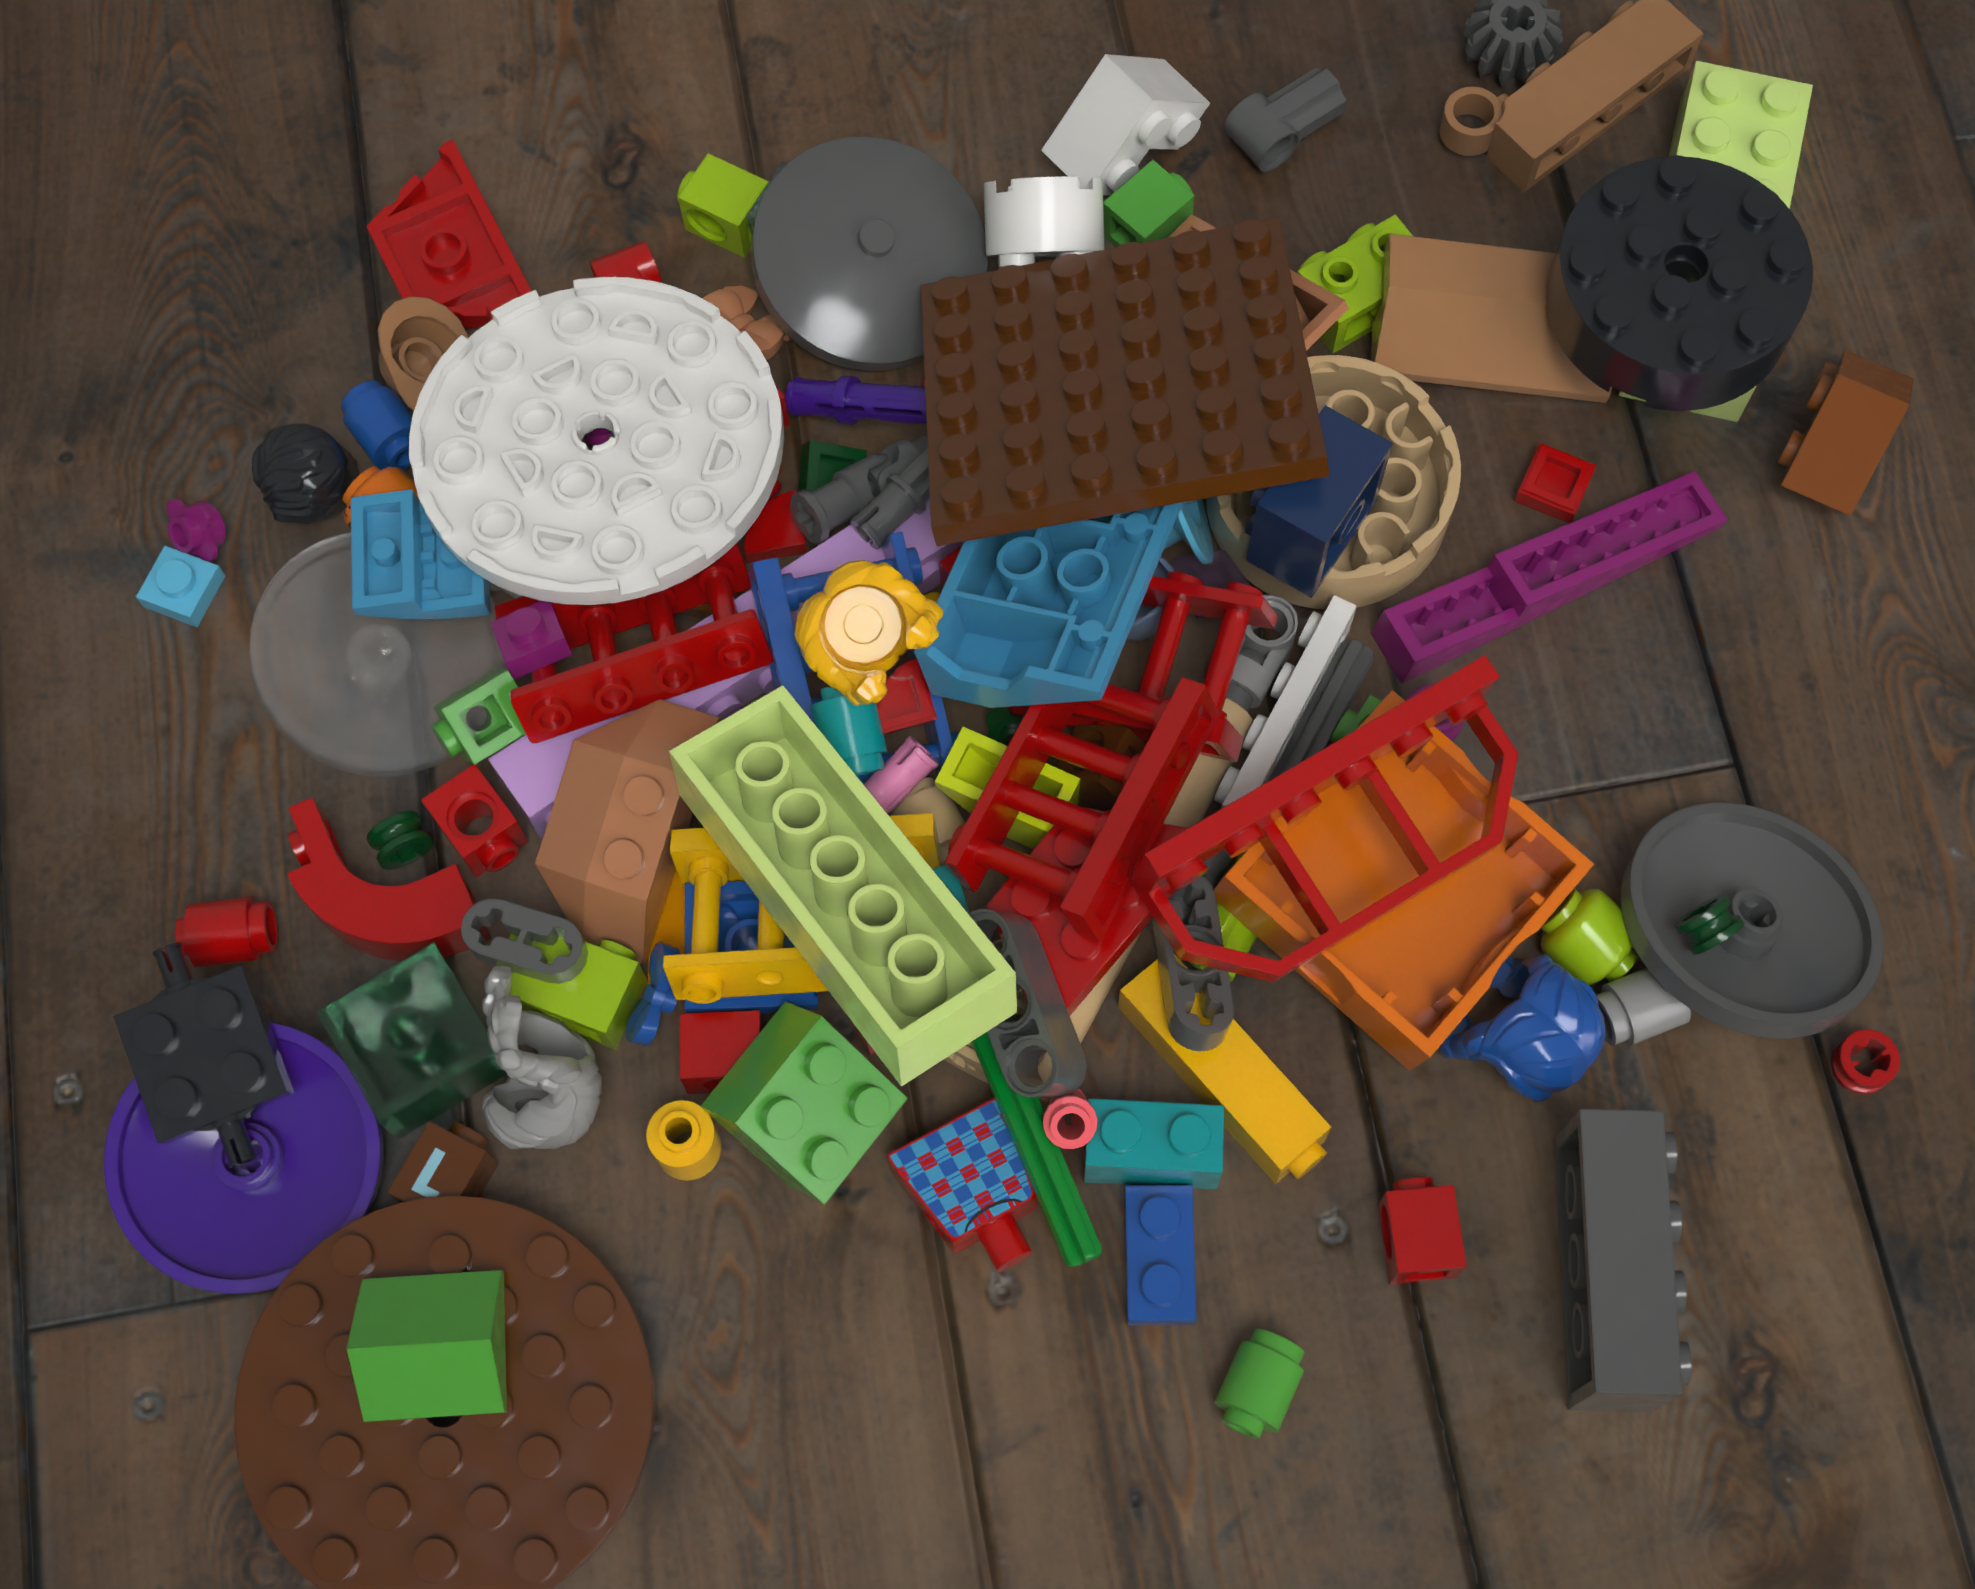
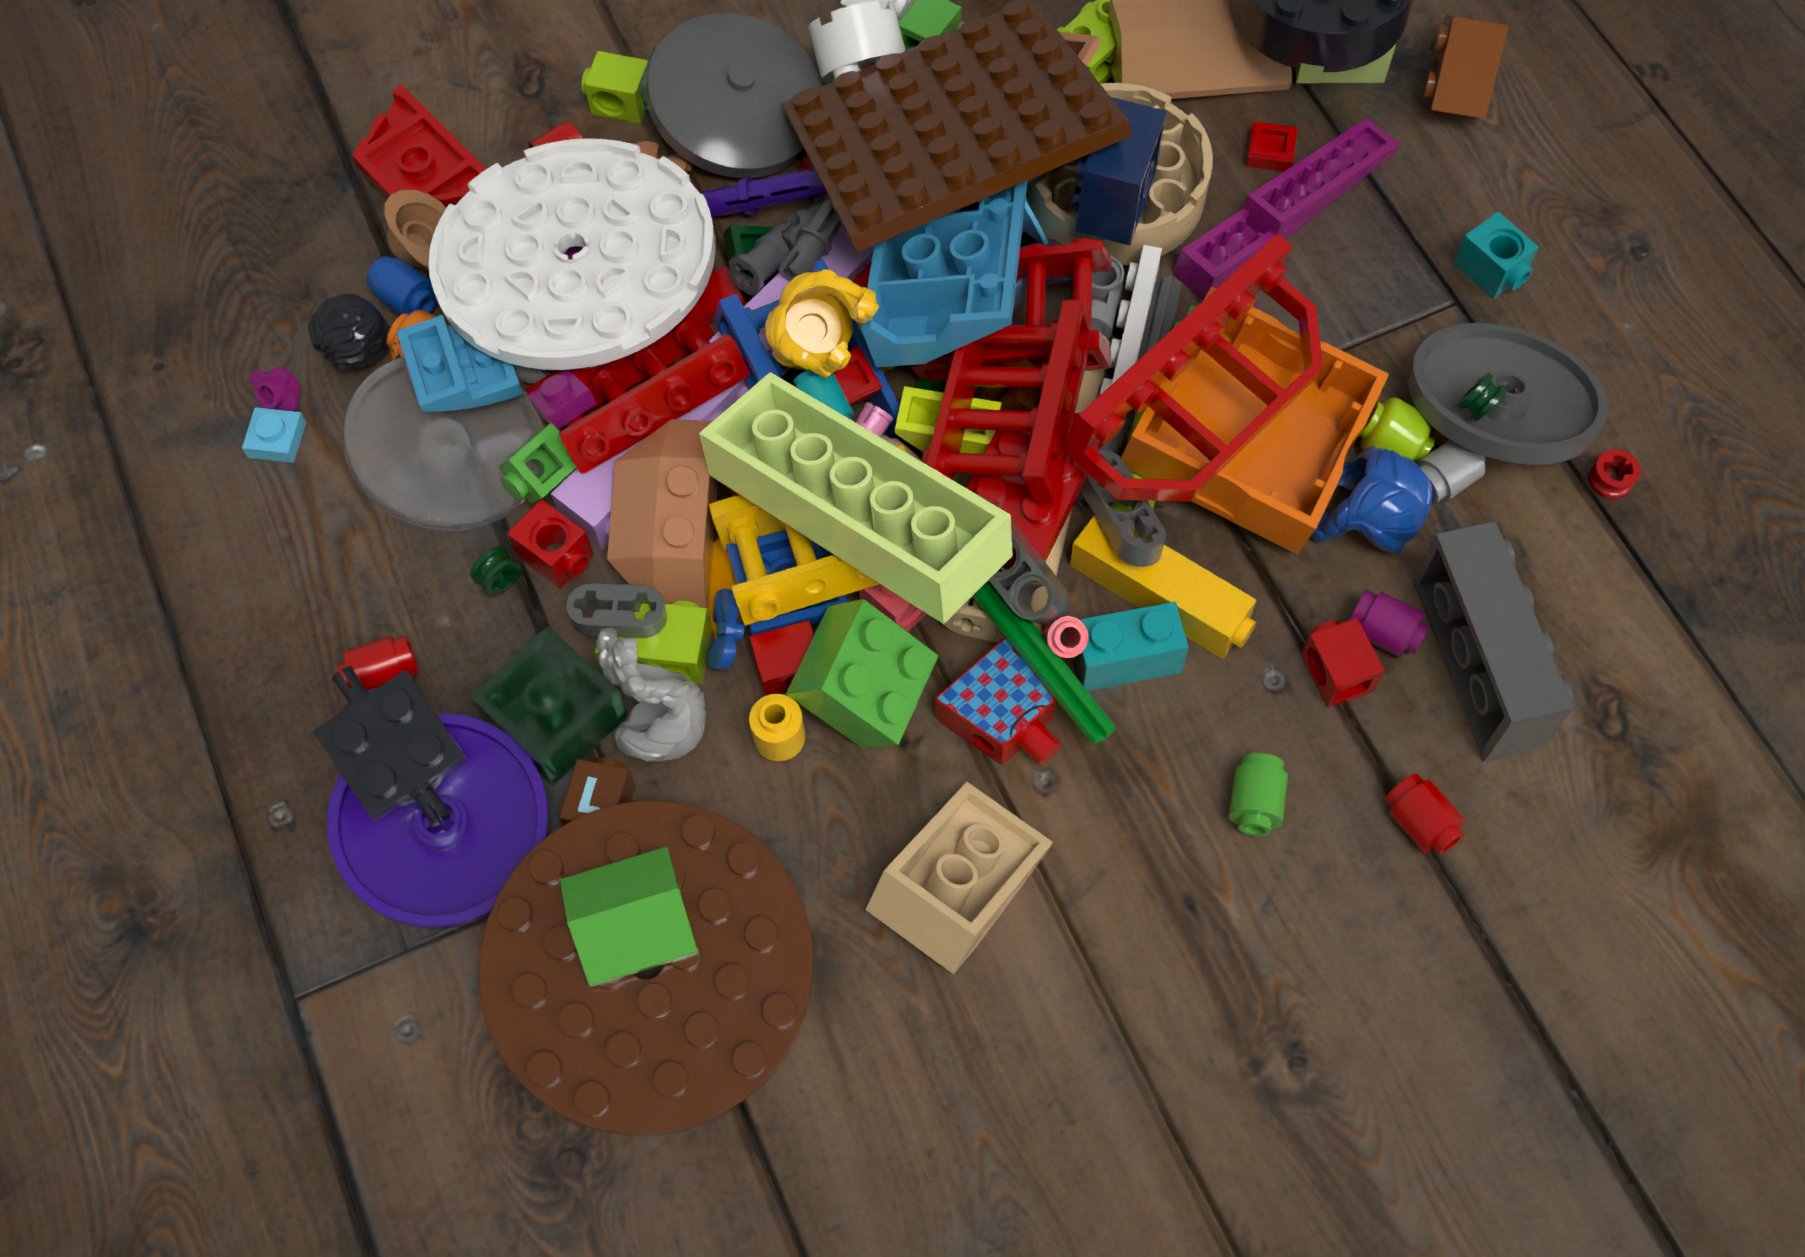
camera: 15 degrees left, 5 degrees down
(373, 917) = (487, 628): red arch -> none
(855, 1391) = (957, 876): none -> tan slope
(1160, 1255) = (1155, 727): blue plate -> none
(1465, 1467) = (1425, 814): none -> red brick
(1498, 1196) = (1390, 623): none -> magenta brick
(1809, 692) = (1496, 255): none -> teal brick

